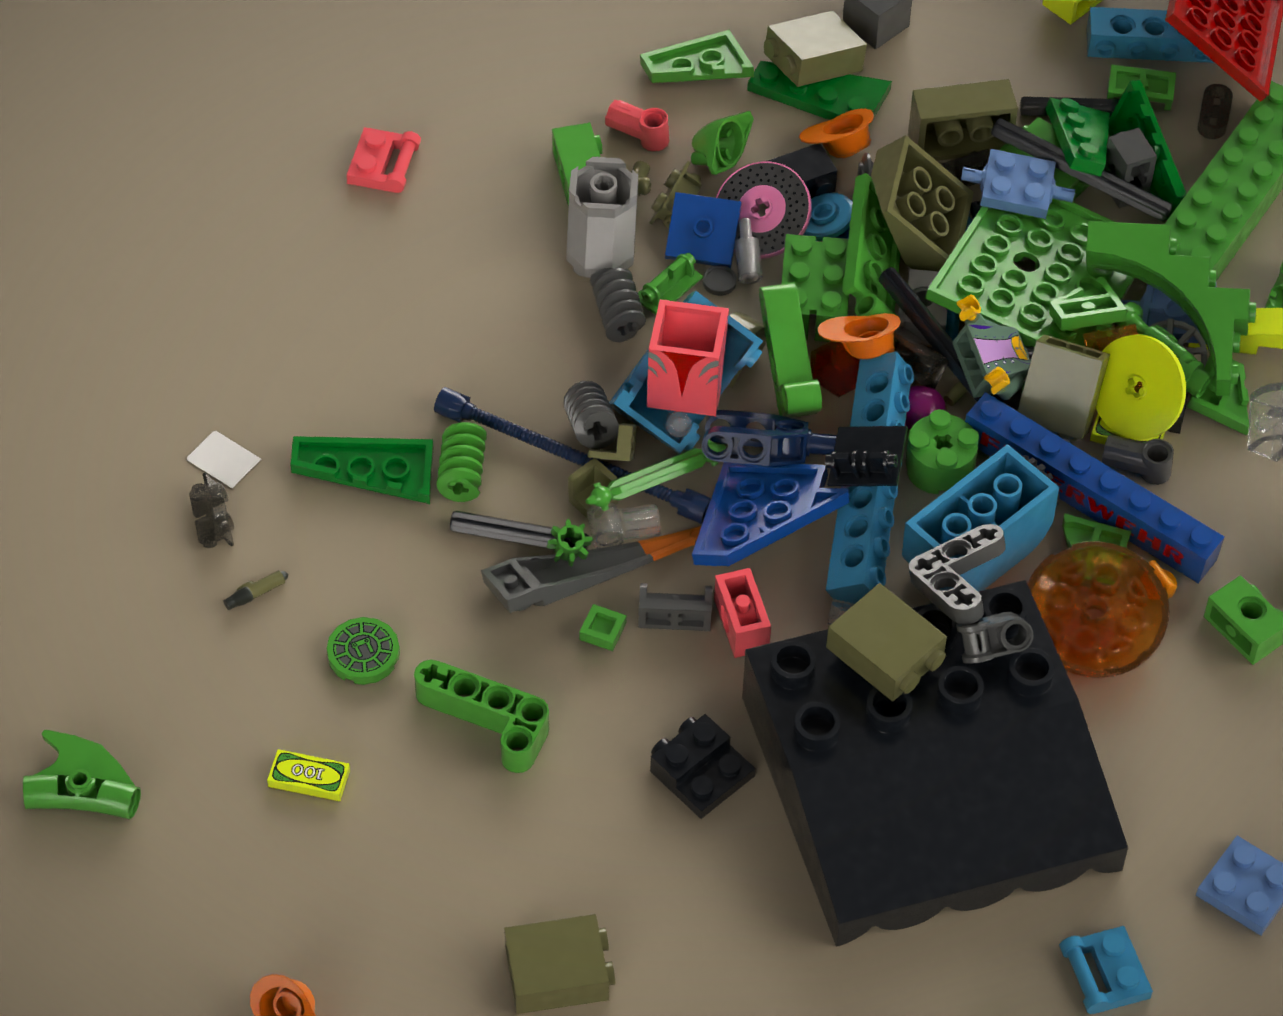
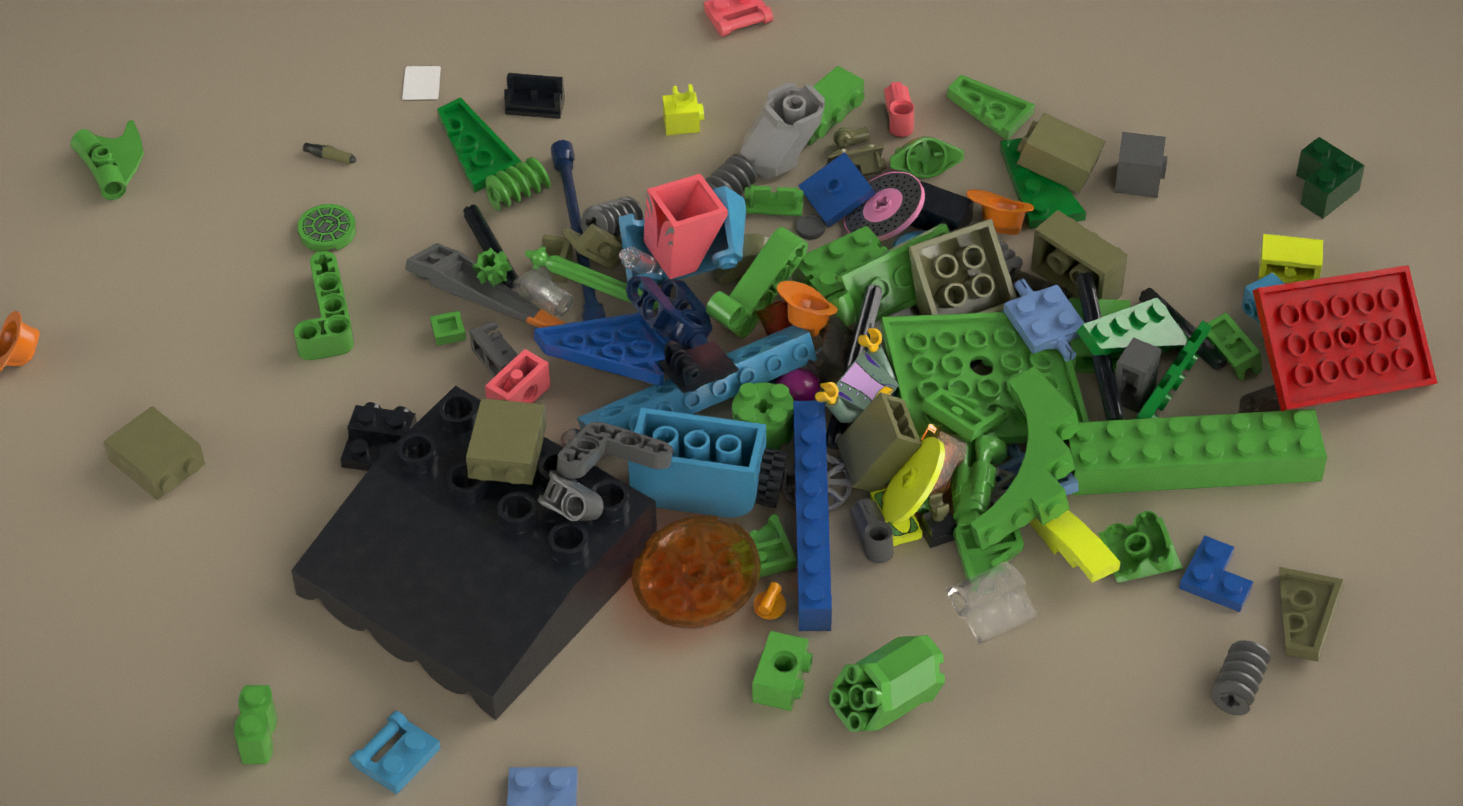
camera: 55 degrees right, 5 degrees down
(210, 500) = (370, 99): clear smoke hinge -> none
(308, 775) = (207, 258): neon yellow tile -> none
(348, 378) = (534, 95): none -> black hinge
(487, 280) = (682, 112): none -> neon yellow brick
(748, 255) = (839, 223): clear piece -> none

